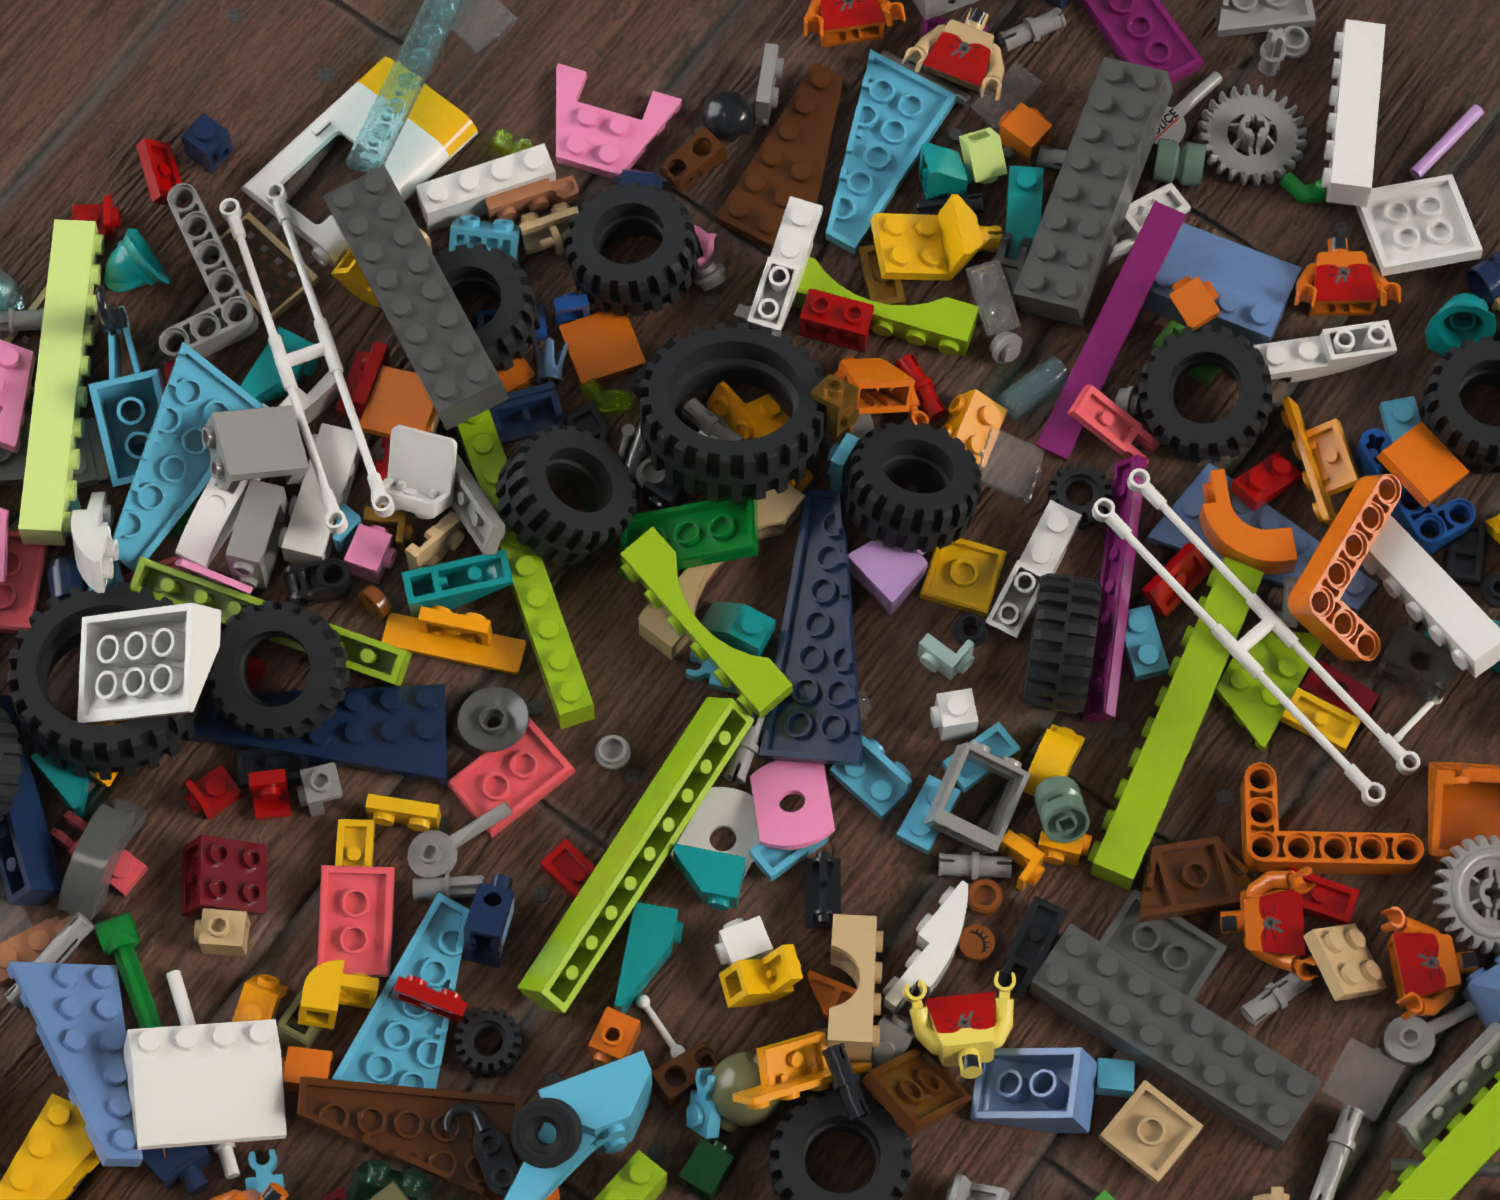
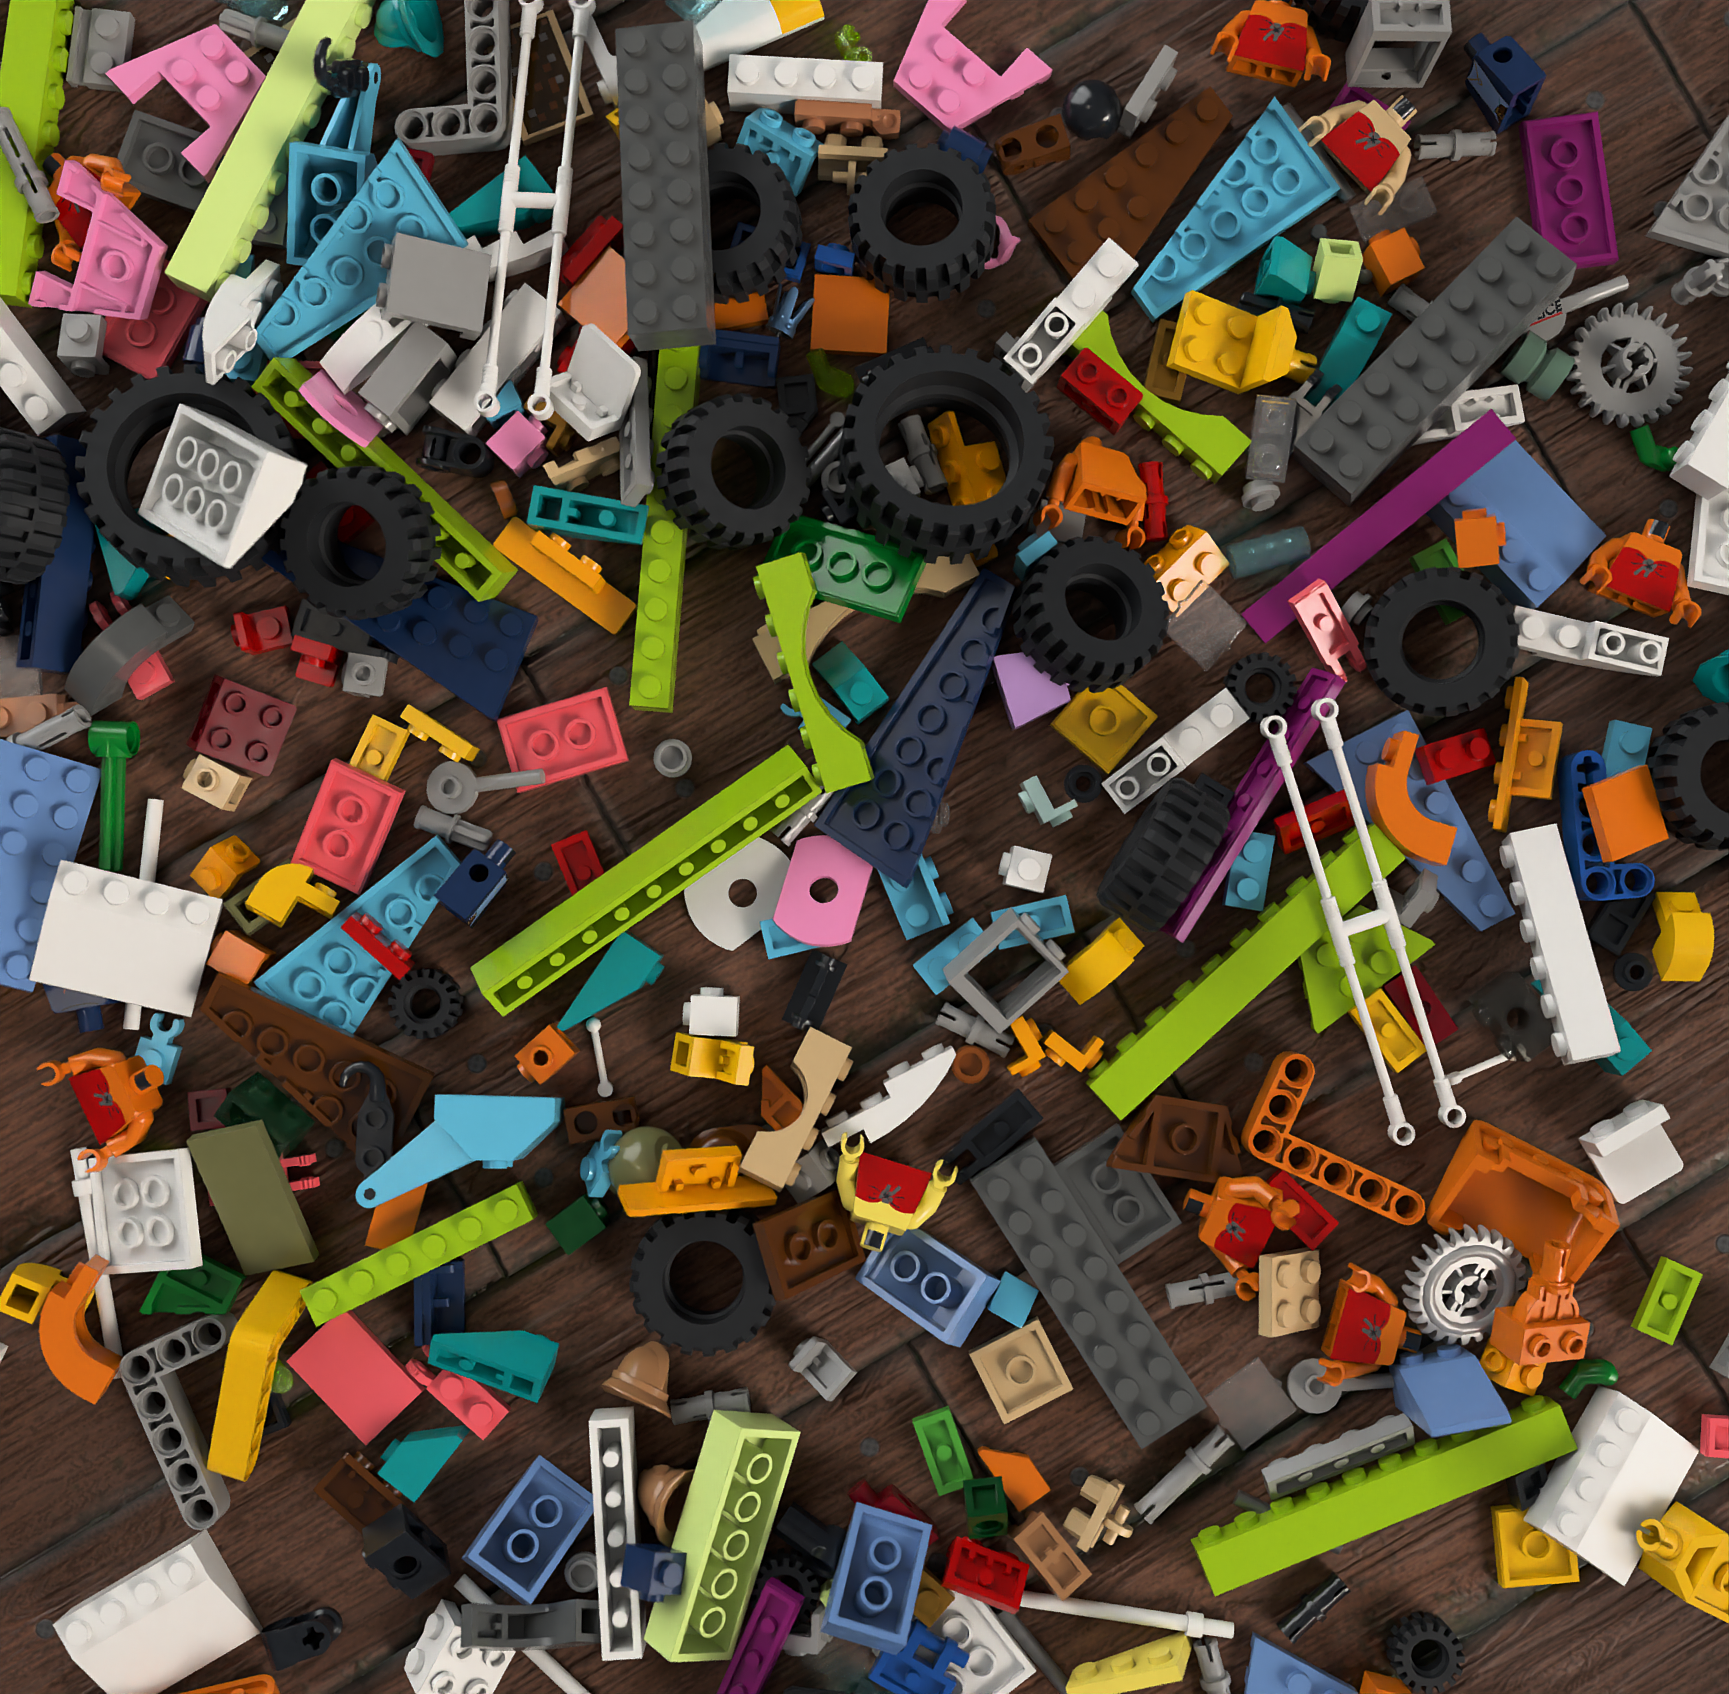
camera: 20 degrees right, 20 degrees up
(491, 706) = (555, 663): dark grey dish -> none
(527, 1142) = (406, 1157): black tyre -> none
(709, 275) = (992, 284): light grey plate -> none
(712, 875) = (711, 933): teal slope -> none
(841, 403) = (1054, 496): pearl gold bracket -> none
(846, 1082) = (737, 1219): black pin -> none
(976, 943) = (941, 1108): dark orange tile -> none
(1061, 809) = (1082, 1022): sand green wheel -> none
(1318, 592) = (1488, 885): orange beam -> none

